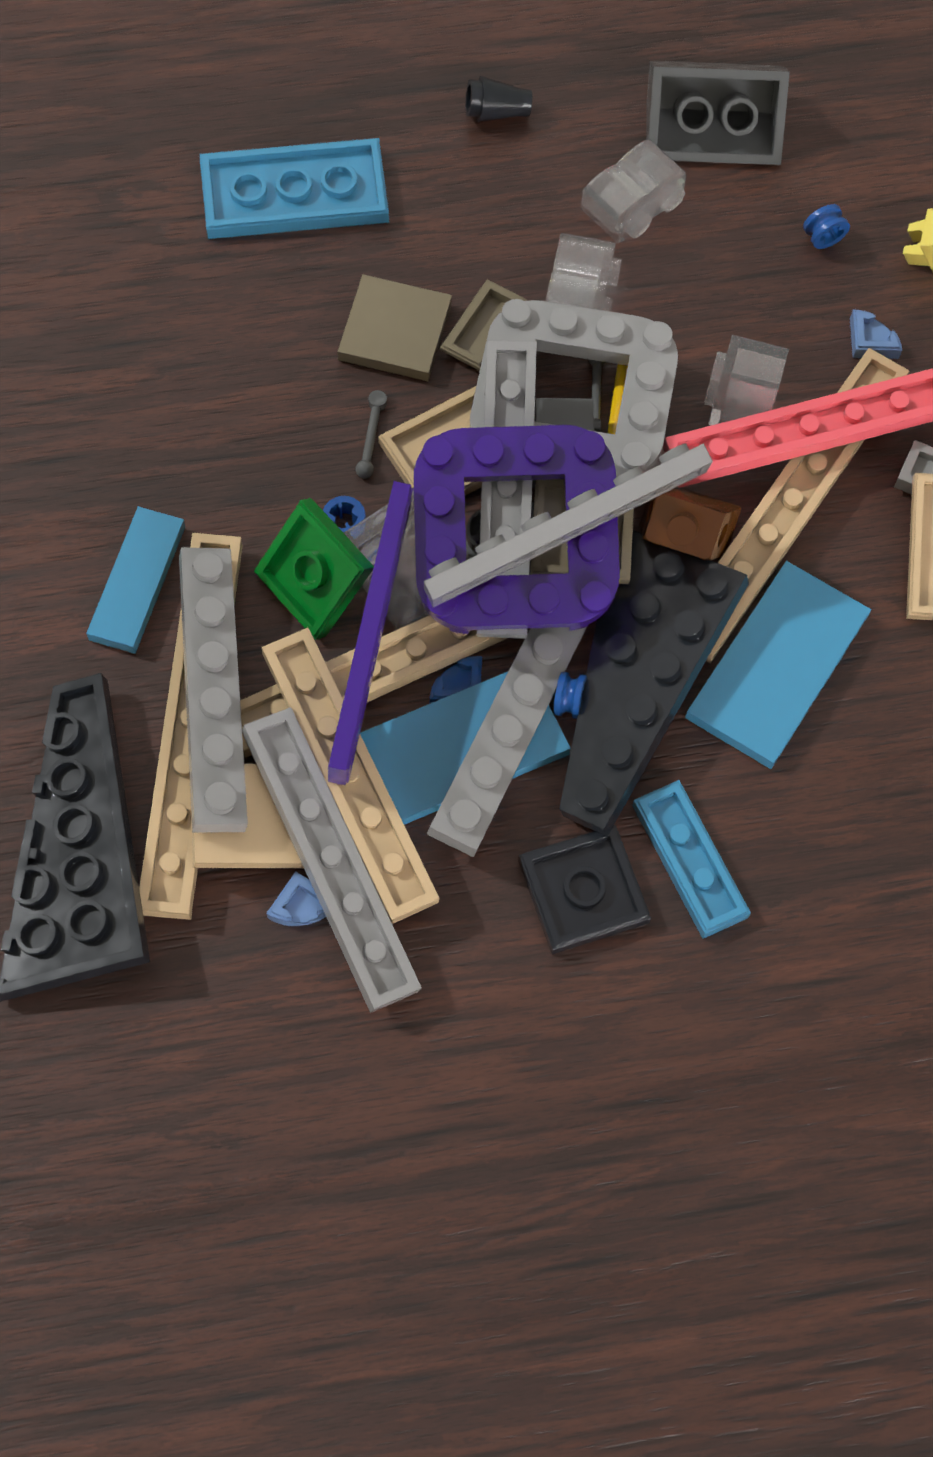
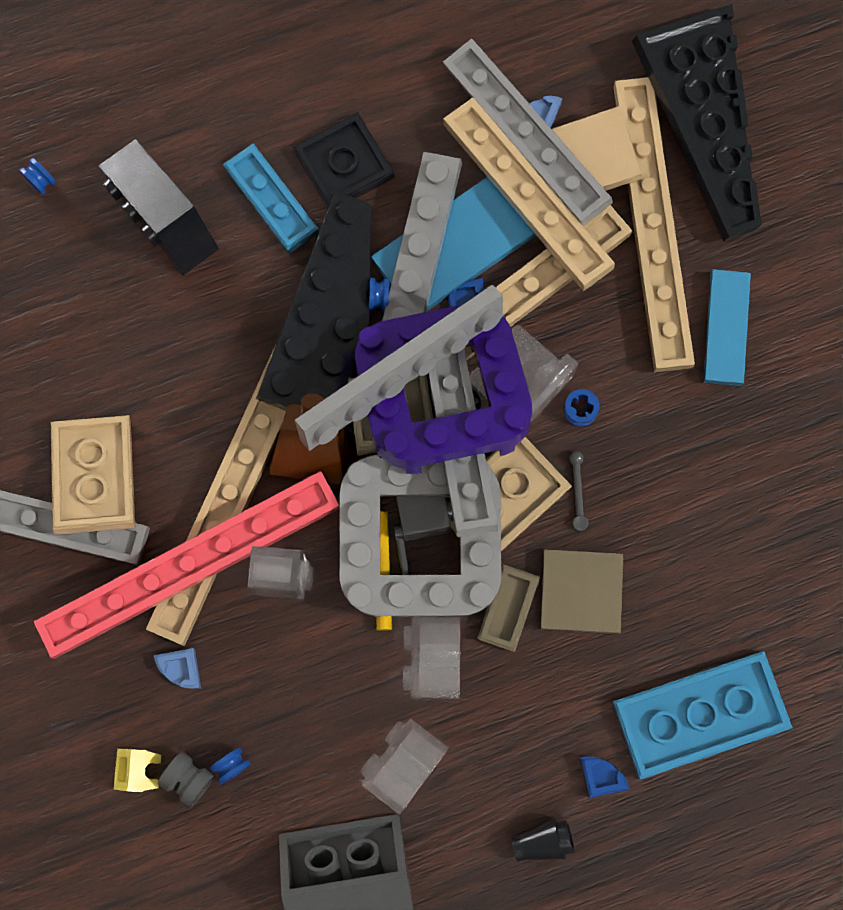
camera: 175 degrees right, 10 degrees up
(212, 691) = (644, 233): light grey plate -> none
(313, 568) = (593, 346): green tile -> none
(370, 634) = (535, 281): dark purple tile -> none
(418, 152) = (602, 777): none -> blue tile
(778, 664) = (224, 358): dark azure tile -> none
(852, 863) = (159, 205): none -> wedge
(877, 221) = (185, 779): none -> dark grey wheel

